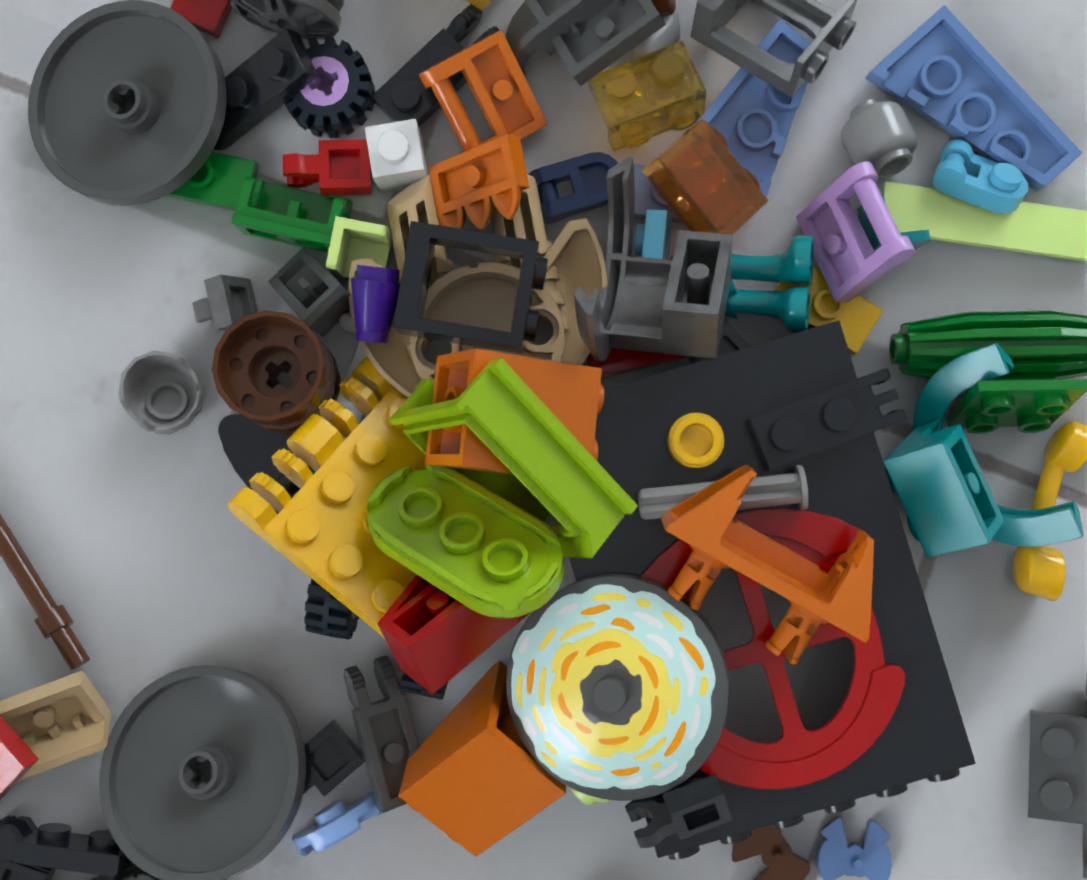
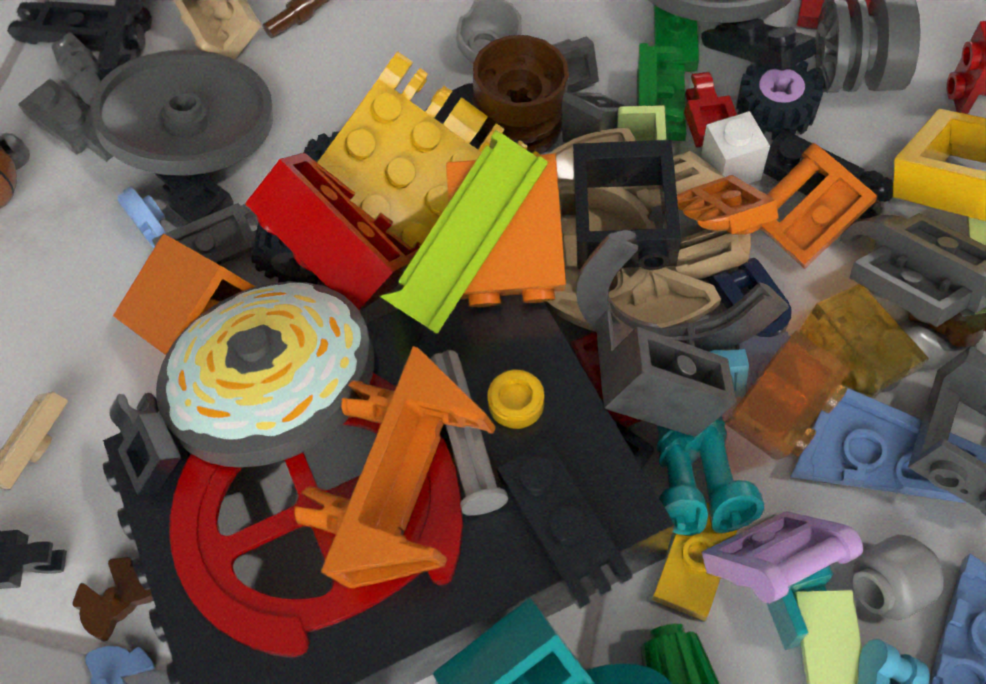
camera: 85 degrees right, 25 degrees down
(374, 302) = (596, 131): dark purple cone -> none
(466, 540) = (382, 215): lime tile -> none

